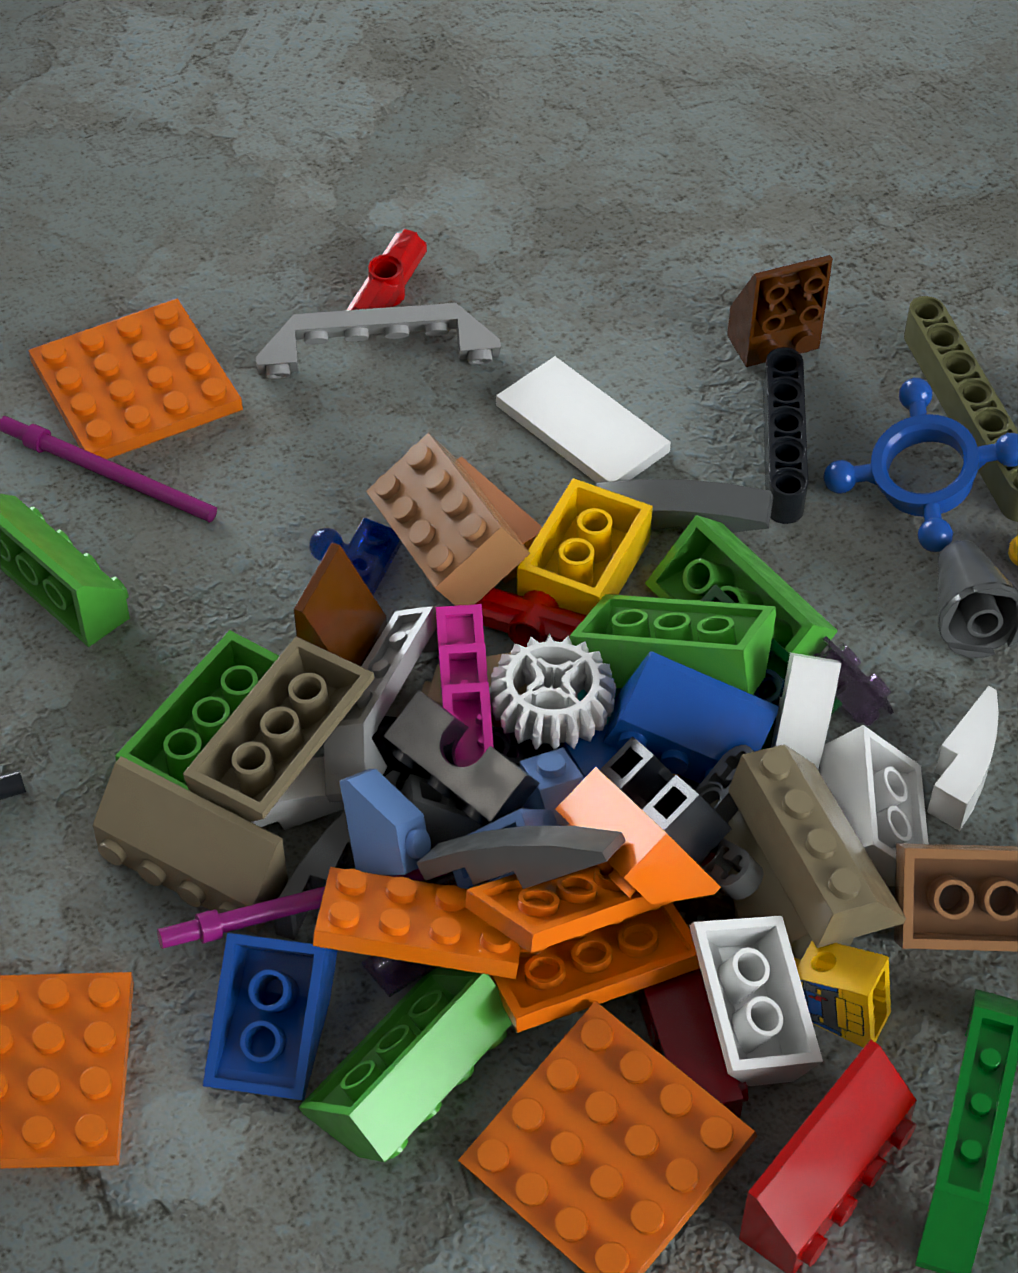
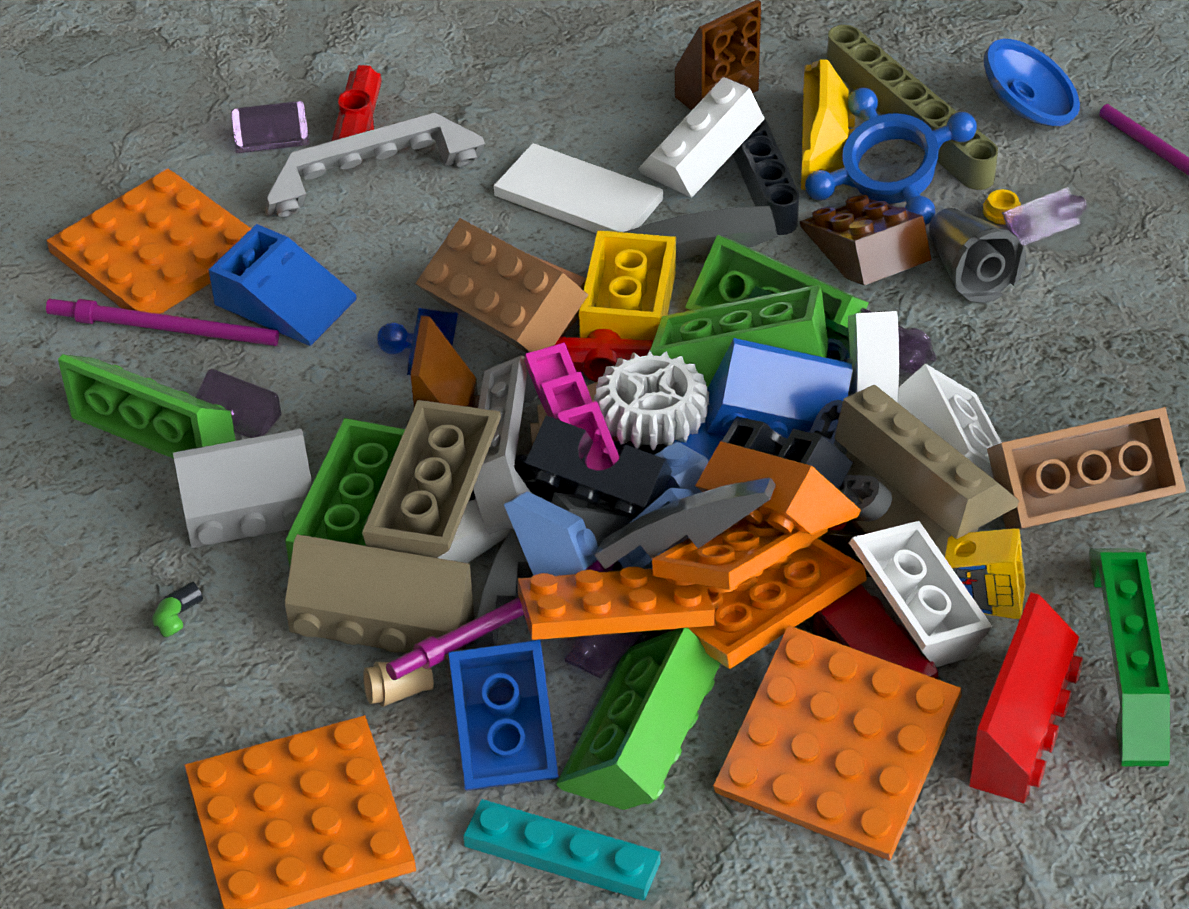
camera: 15 degrees left, 5 degrees down
(101, 679) = (243, 487): none -> light grey slope
(150, 585) = (251, 406): none -> clear purple slope
(180, 953) = (384, 690): none -> tan cone
(232, 459) = (278, 286): none -> blue slope
(275, 1187) = (562, 849): none -> teal plate
(296, 275) = (269, 127): none -> clear purple slope
(730, 396) = (705, 138): none -> white slope
(868, 406) = (824, 119): none -> yellow wedge
(868, 553) = (869, 238): none -> reddish brown slope
(965, 762) = (1014, 379): white slope -> none

